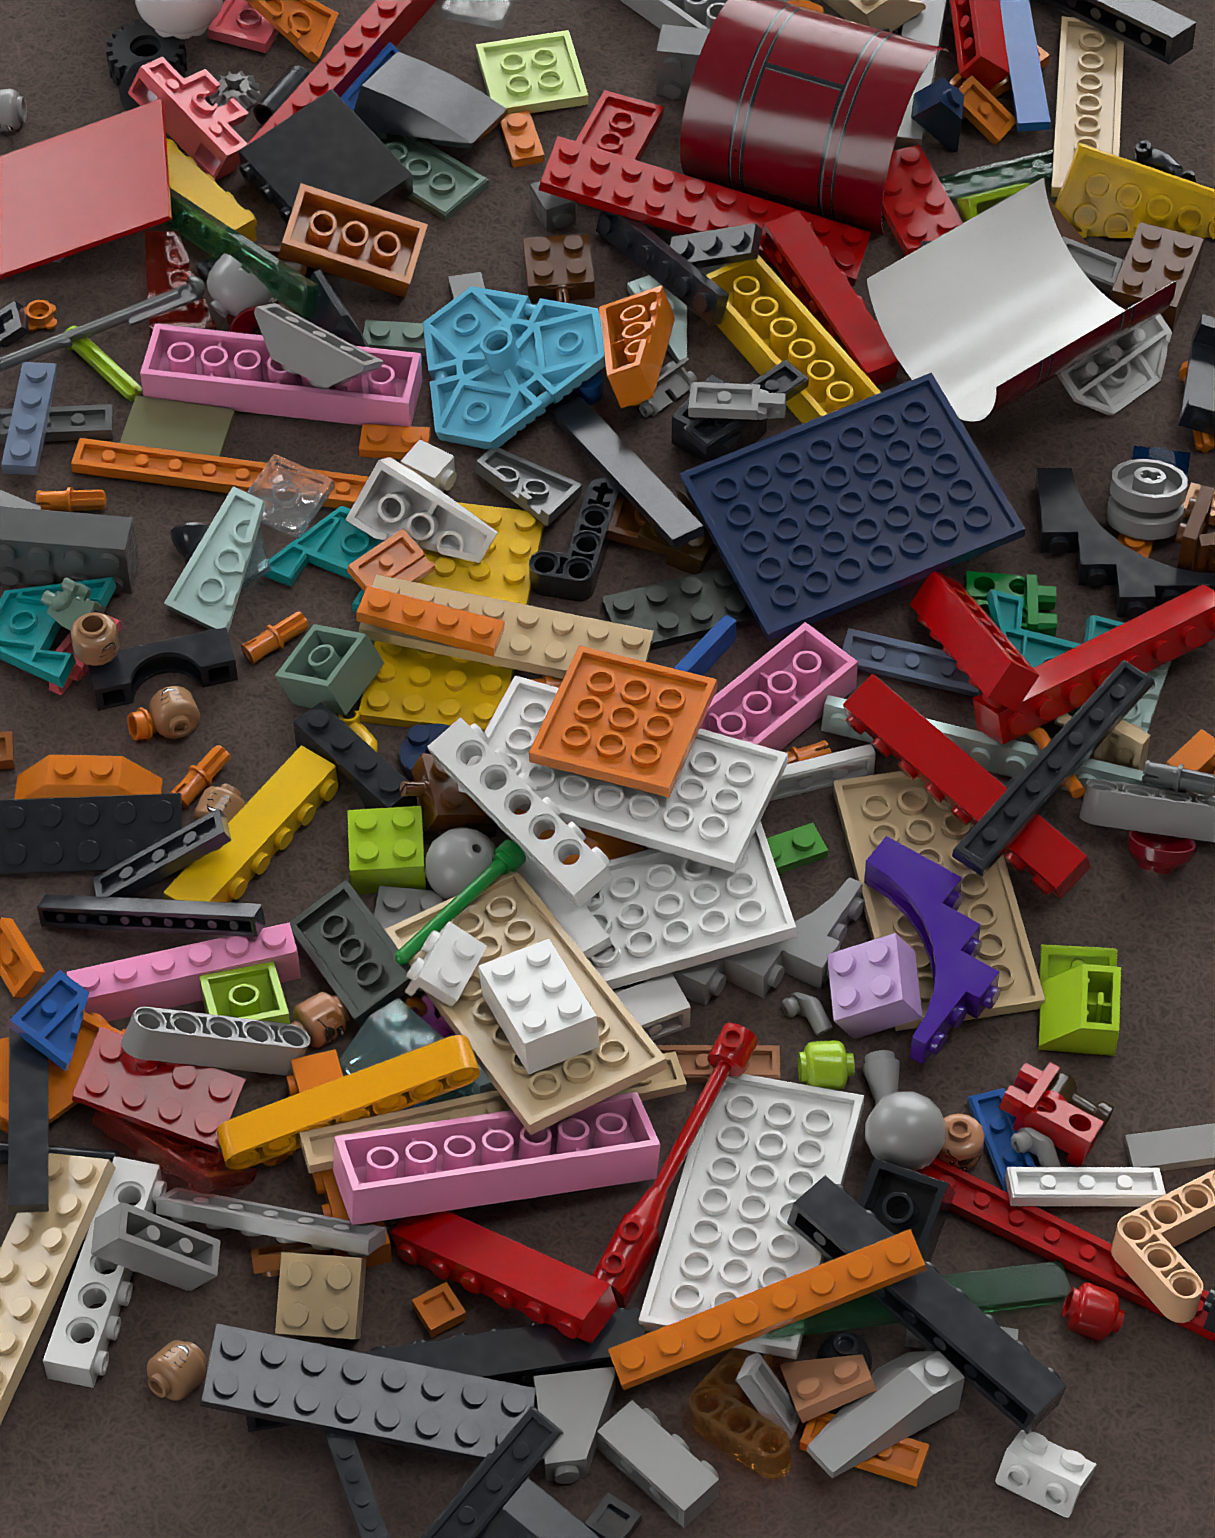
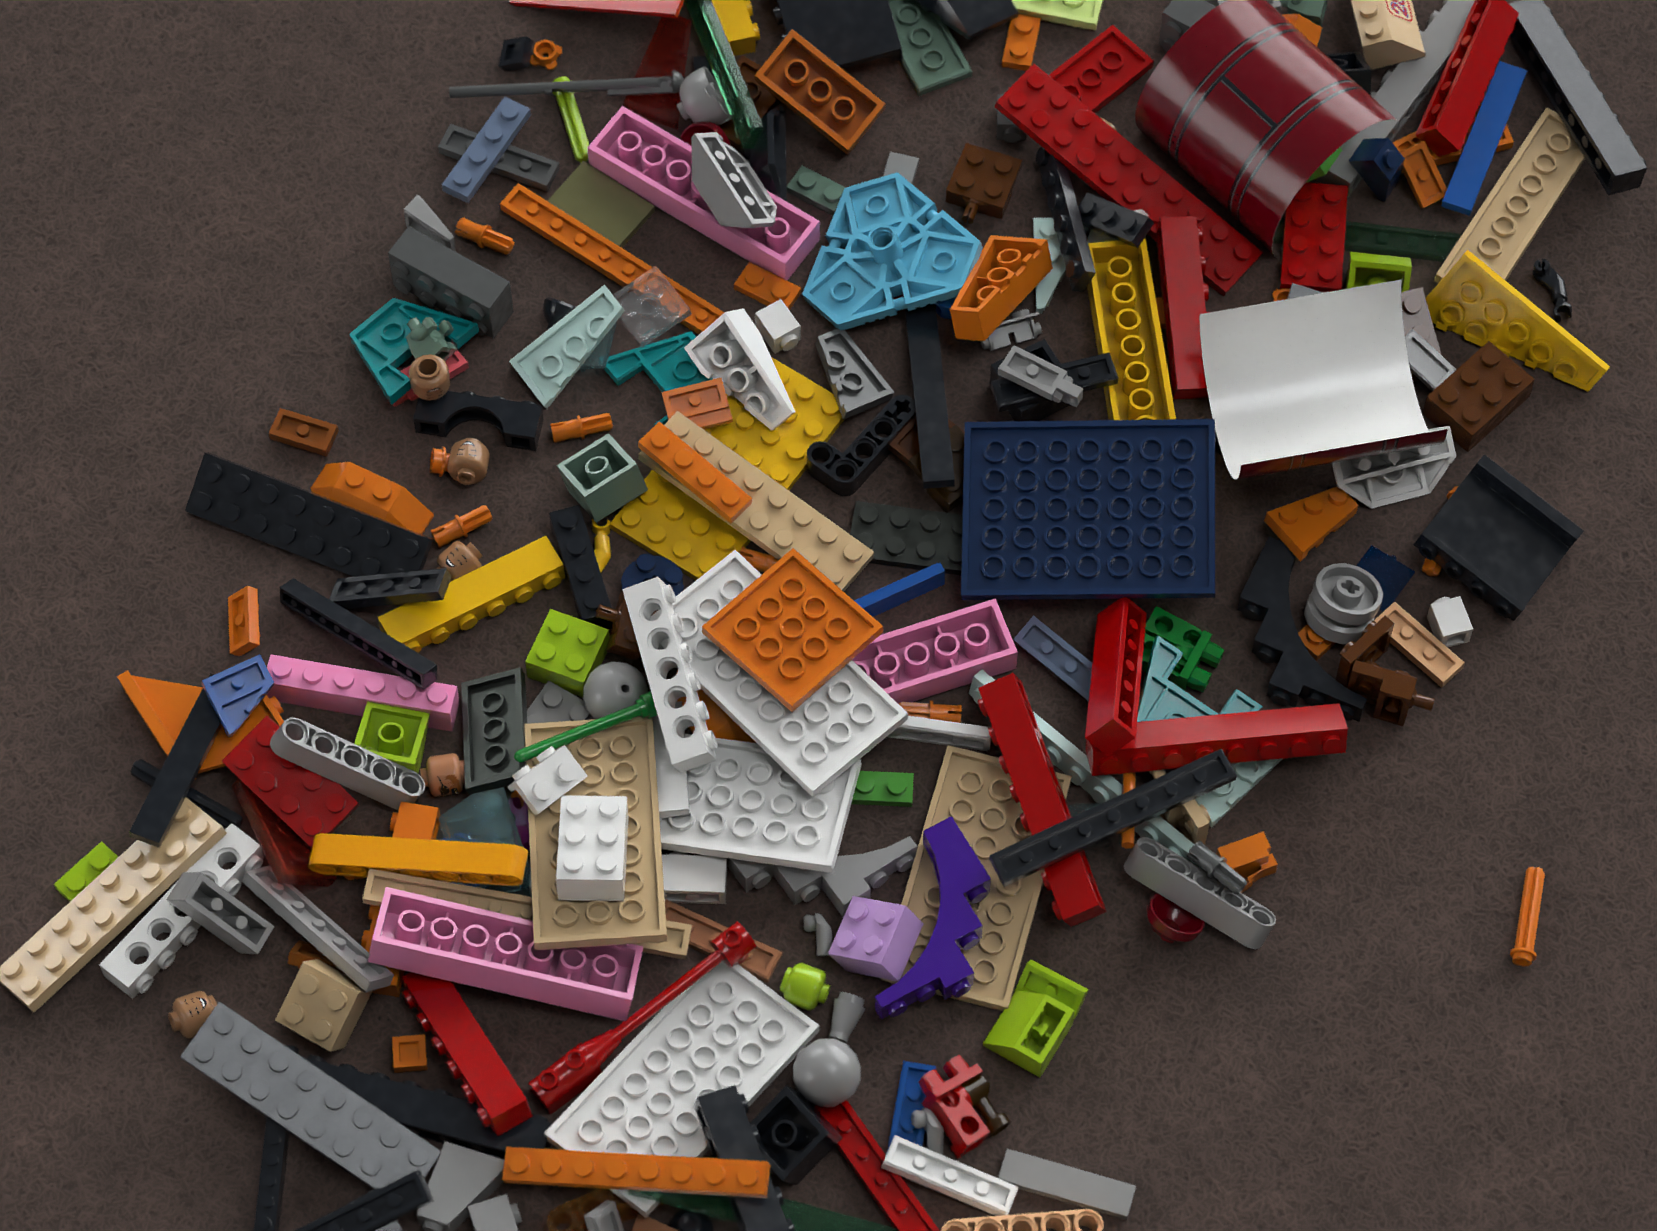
camera: 25 degrees right, 10 degrees up
(963, 1142) = (872, 1097): nougat head -> none
(1066, 440) = (1311, 519): none -> orange wing

